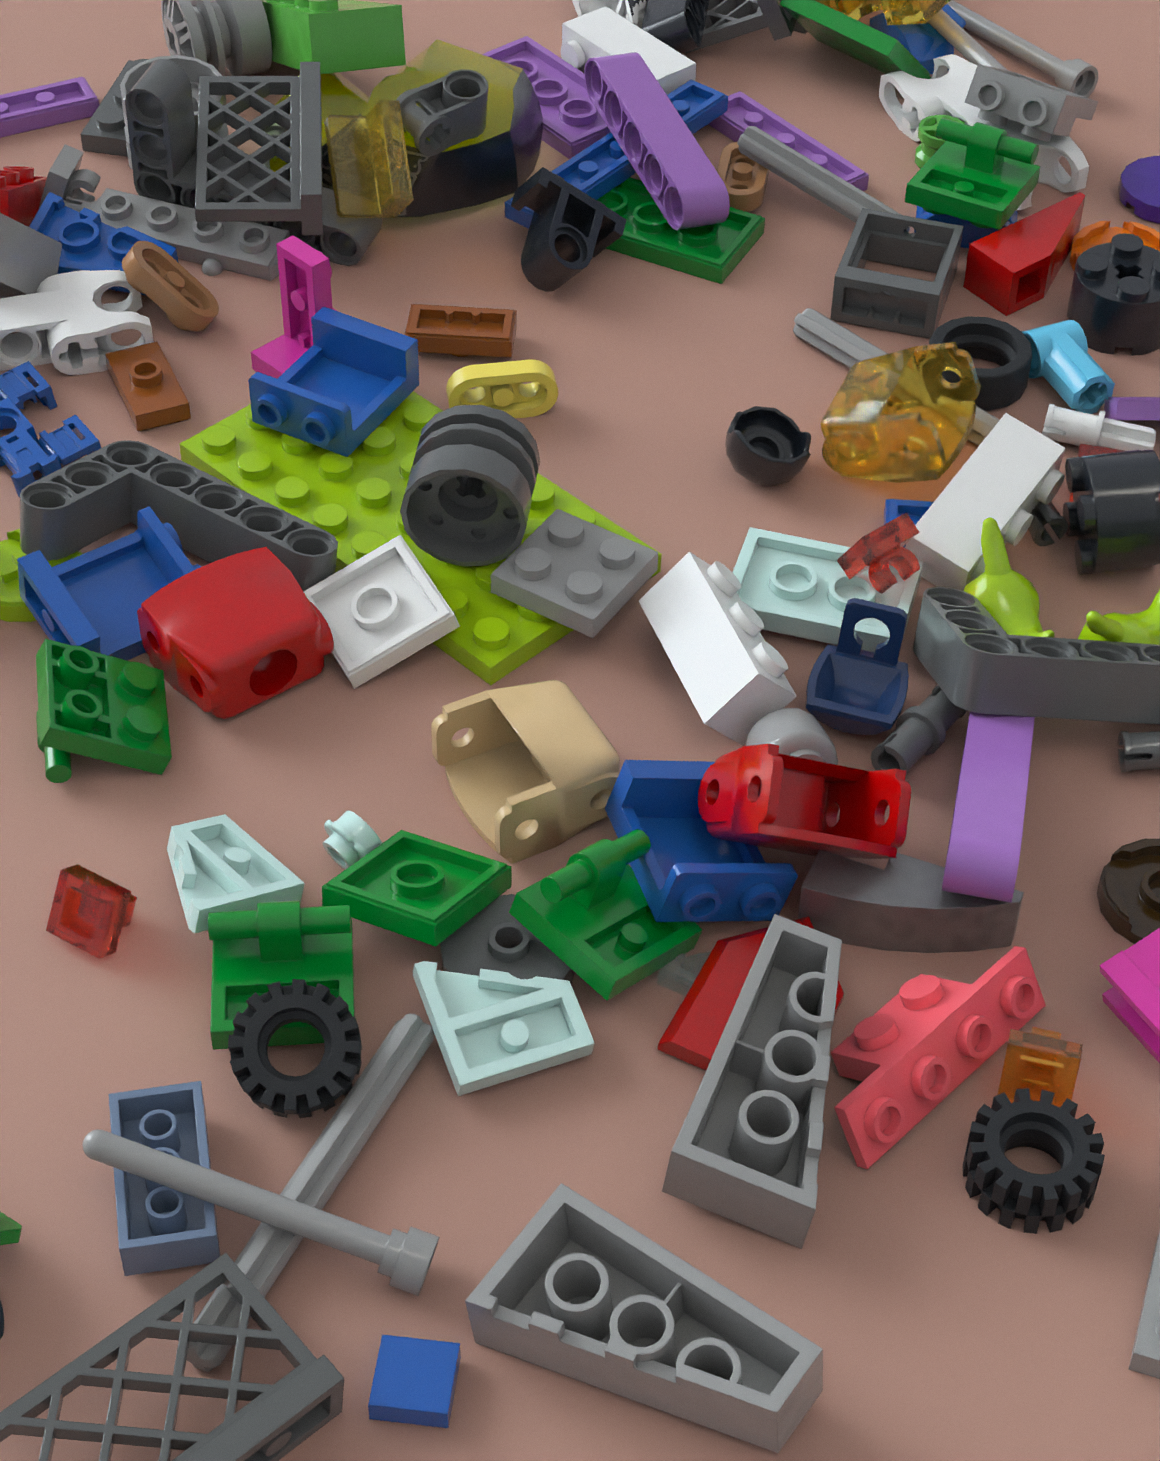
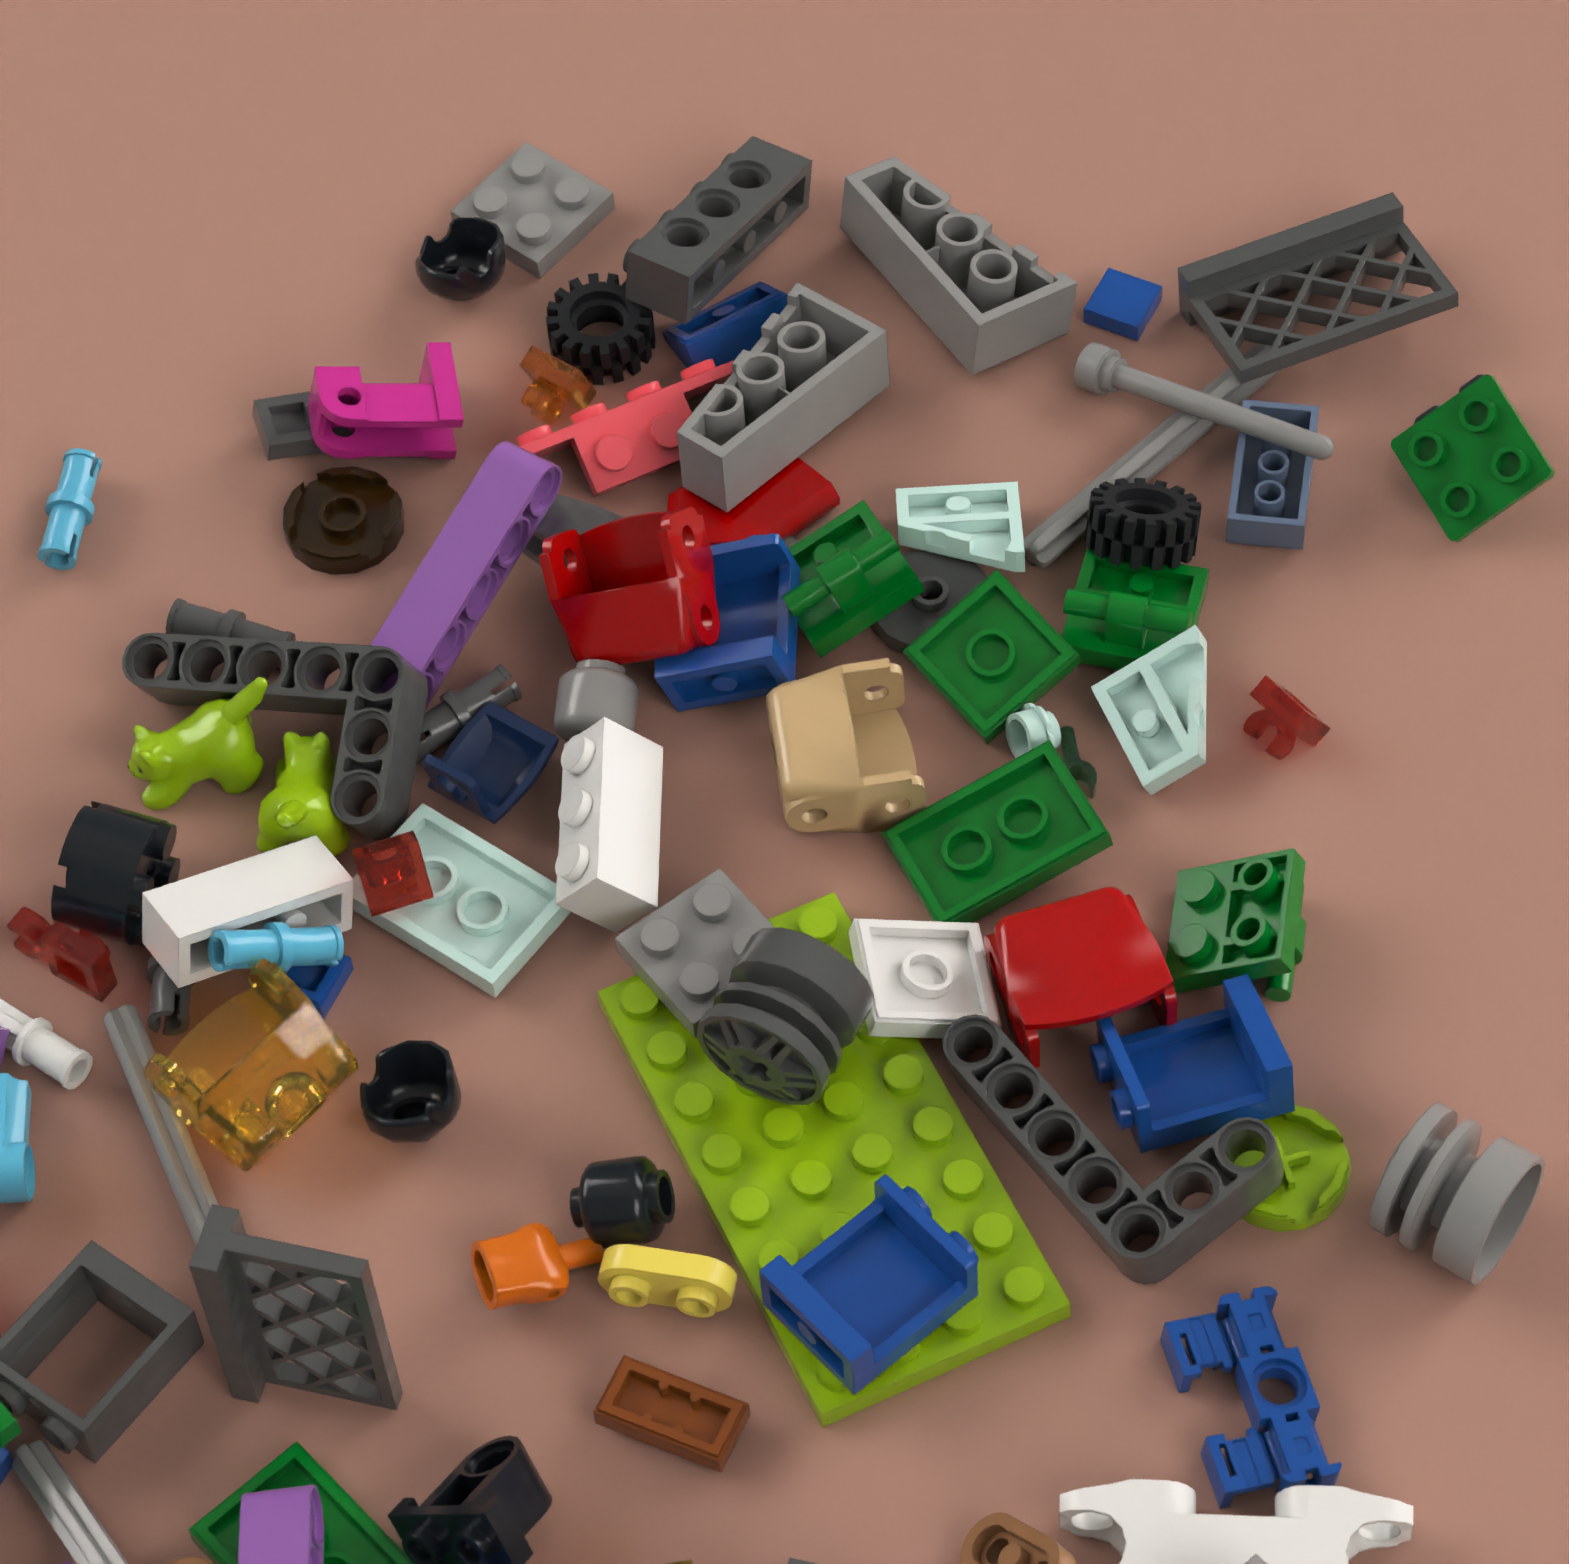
camera: 155 degrees left, 10 degrees up
(148, 386) = (1082, 1429): dark orange plate -> none
(299, 827) = (1079, 768): none -> clear green hand
(304, 291) = (867, 1440): dark pink bracket -> none
(346, 740) = (997, 837): none -> green tile
(562, 421) = (623, 1201): none -> black head
(612, 377) = (528, 1265): none -> orange piece
(785, 219) = (246, 1320): none -> dark grey fence
(888, 1223) = (726, 326): none -> blue slope
(927, 1401) = (717, 229): none -> dark grey brick
(936, 470) = (276, 944): none -> medium azure pin
(993, 342) = (81, 1134): black tyre -> none

